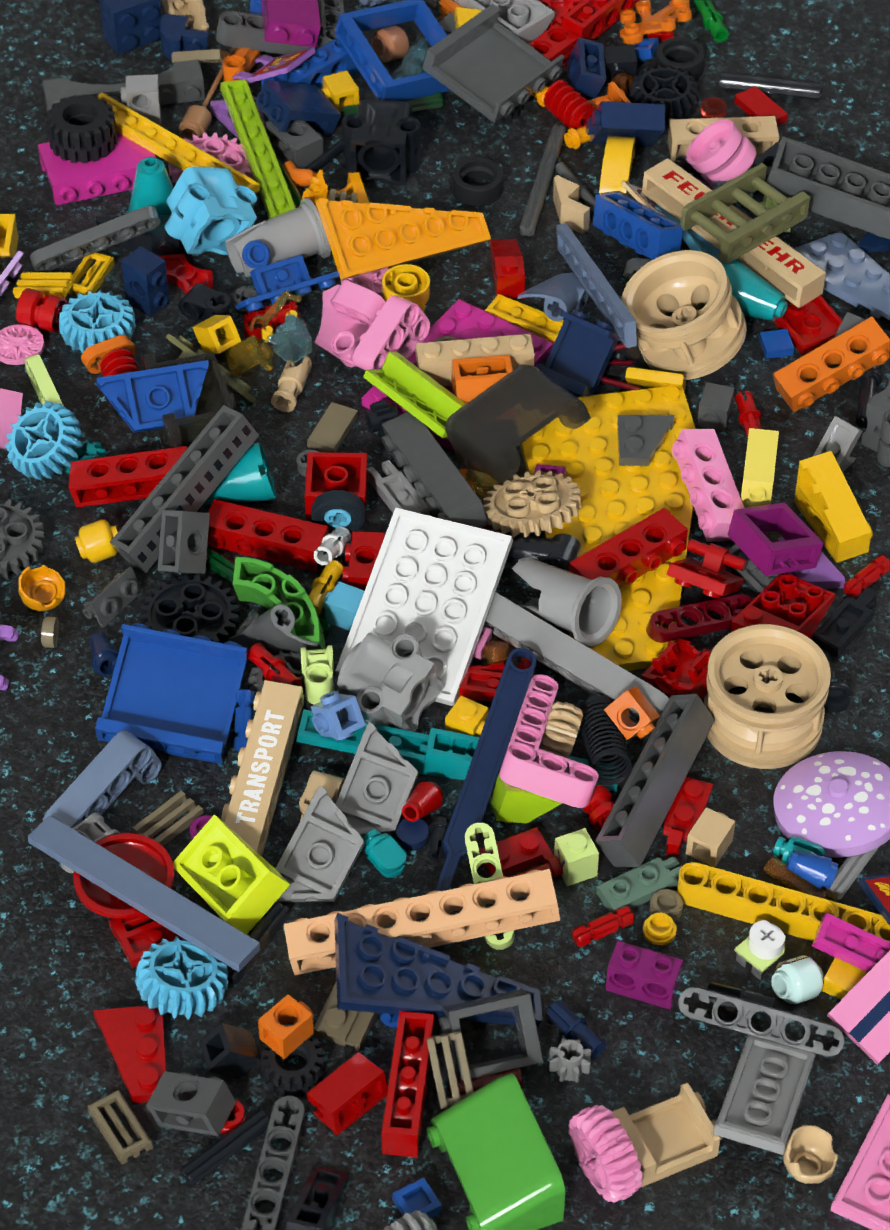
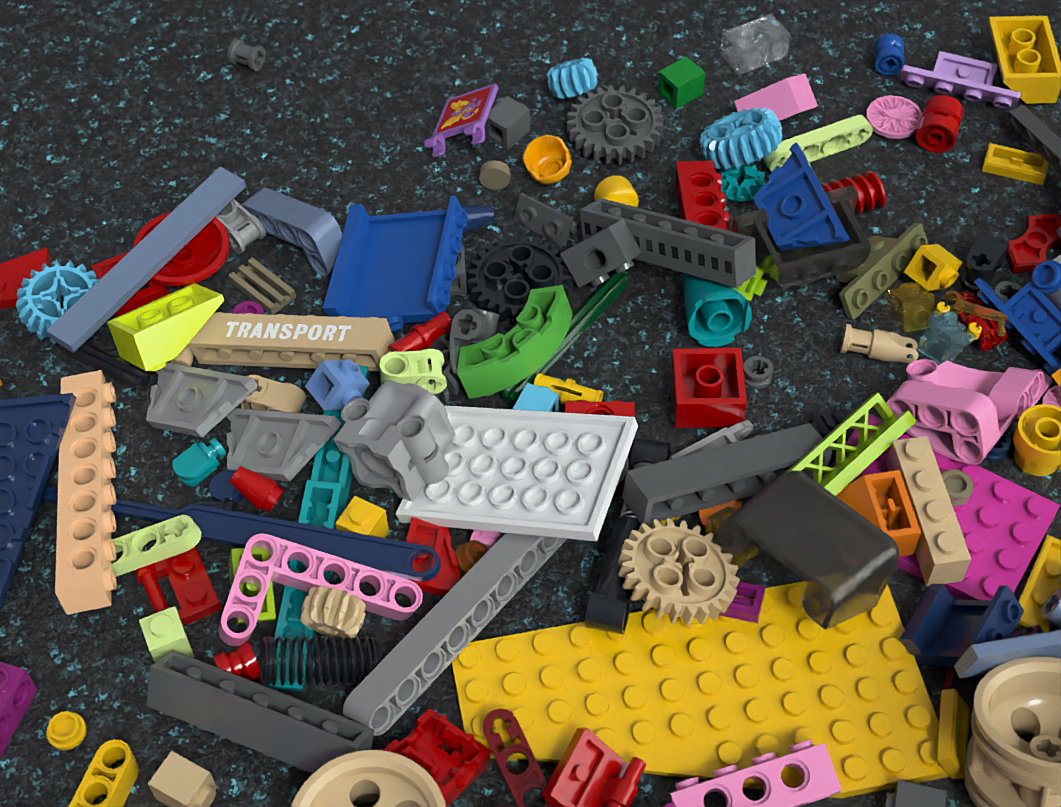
camera: 90 degrees right, 5 degrees up
(48, 282) = (985, 115): yellow tile -> none
(95, 319) = (935, 171): medium azure gear -> none
(100, 349) = (897, 189): orange beam -> none
(145, 281) = (997, 195): dark blue brick -> none
(264, 535) = (635, 334): red brick -> none
(332, 428) = (815, 389): dark tan tile -> none
(332, 545) = (600, 378): white pin -> none
(338, 501) = (664, 389): black bush -> none
(572, 601) = (522, 611): light grey piece -> none
(602, 926) = (80, 672): red axle -> none
(619, 714) = (337, 680): orange brick -> none
(634, 550) = (581, 639): red brick -> none
(639, 884) = (135, 720): sand green hinge -> none
(640, 437) = (832, 708): dark grey wing -> none
(667, 902) = (97, 734): dark tan tile -> none
(685, 812) = (231, 763): red hinge -> none

